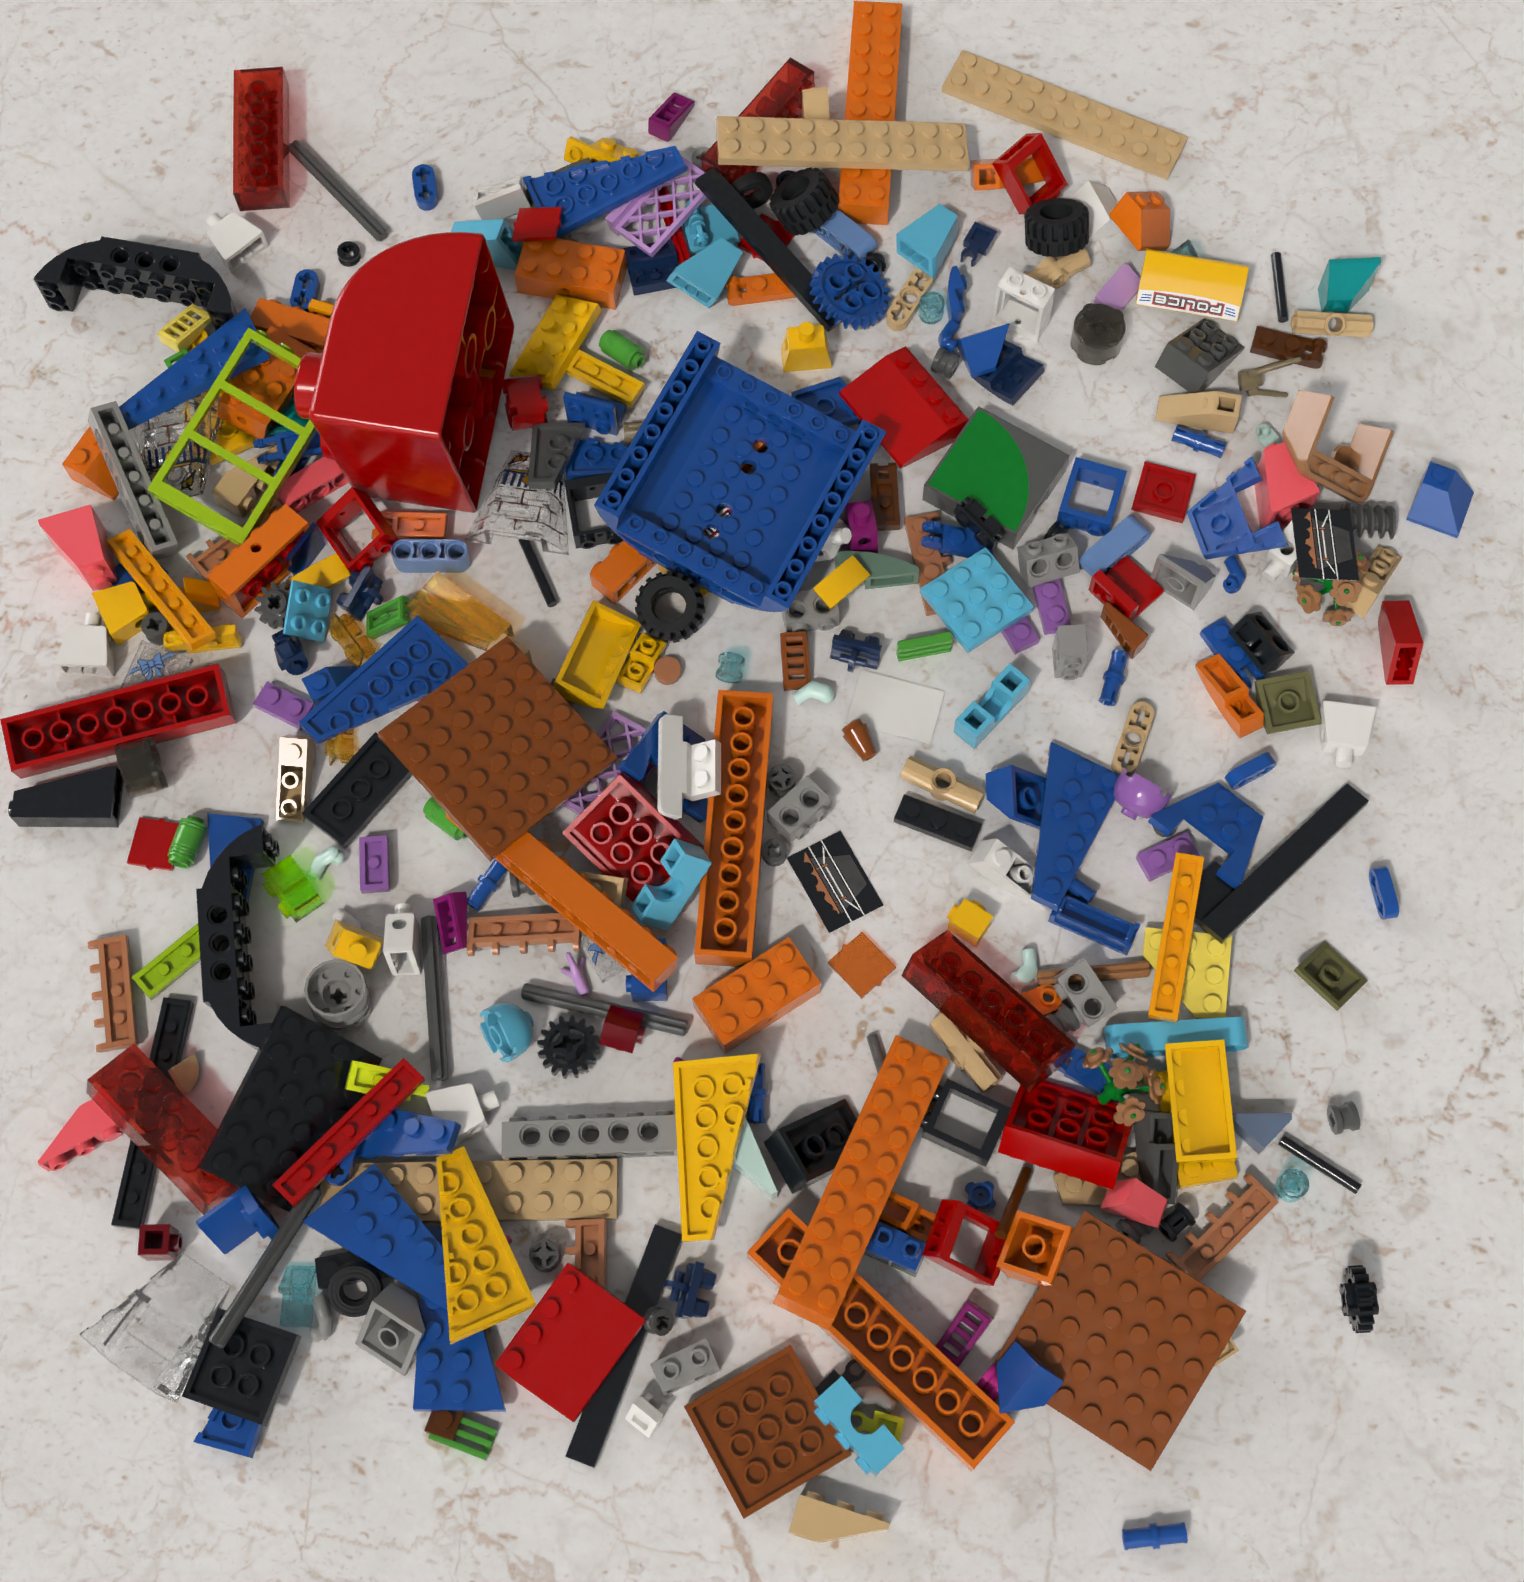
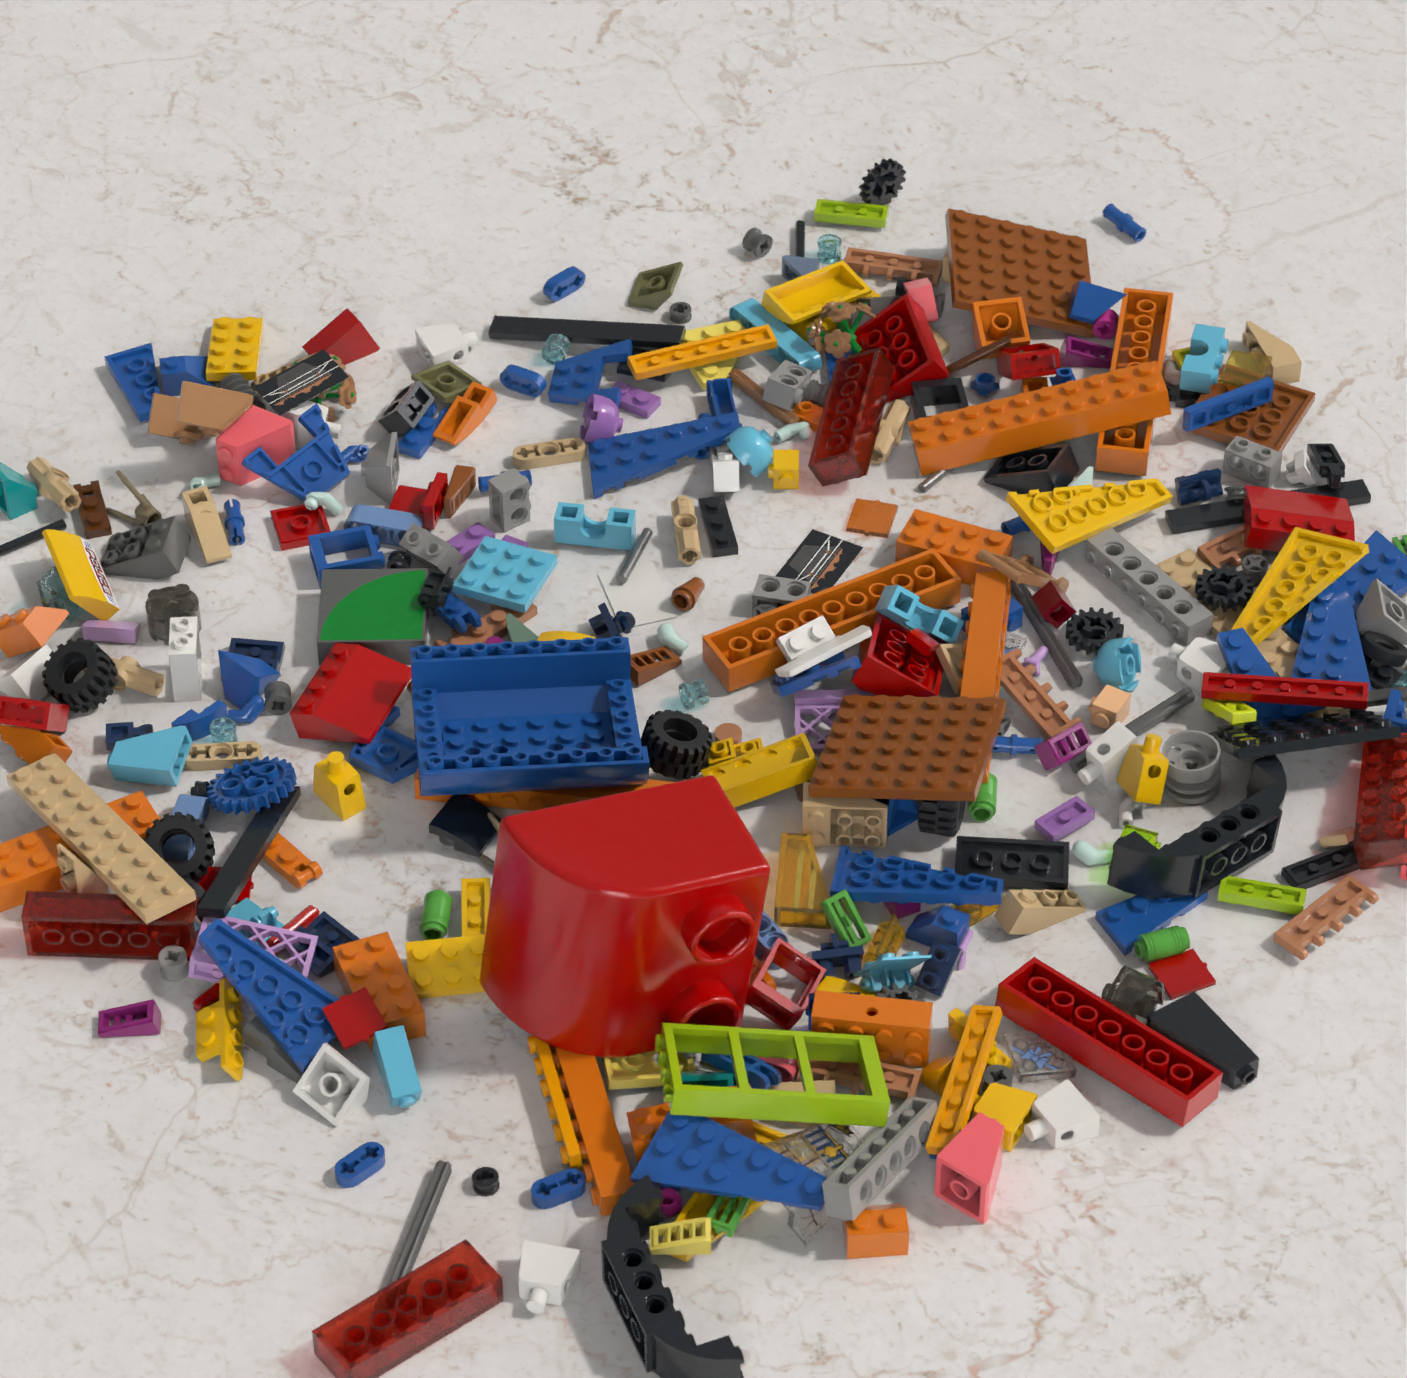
camera: 125 degrees left, 25 degrees down
(282, 704) = (984, 960): medium lavender plate -> none
(301, 690) = (963, 945): none -> lavender hand
(467, 989) = (1109, 707): none -> light nougat brick
(527, 1177) = (1224, 588): none -> black gear
(635, 1444) = (1327, 463): none -> black hinge
(636, 866) = (922, 642): none -> red slope
(651, 1056) = (1021, 570): none -> medium nougat piece
(706, 272) = (302, 890): medium azure slope -> none
(769, 1442) = (1227, 404): none -> blue plate
(817, 1463) = (1244, 368): none -> clear yellow piece
(924, 646) = (572, 591): bright green tile -> none
(943, 729) = (634, 555): none -> flat silver bar
(1003, 890) = (751, 448): none -> medium azure cylinder
(1016, 794) = (659, 488): blue slope -> none
(1179, 507) = (325, 499): none -> light aqua arm
(1280, 825) = (555, 348): none -> clear light blue wheel
(1284, 976) = (680, 313): none -> dark grey bush
(1341, 1248) = (851, 213): none -> lime plate
(1451, 556) = (234, 348): none -> yellow plate
(1473, 460) = (136, 377): none -> blue wing

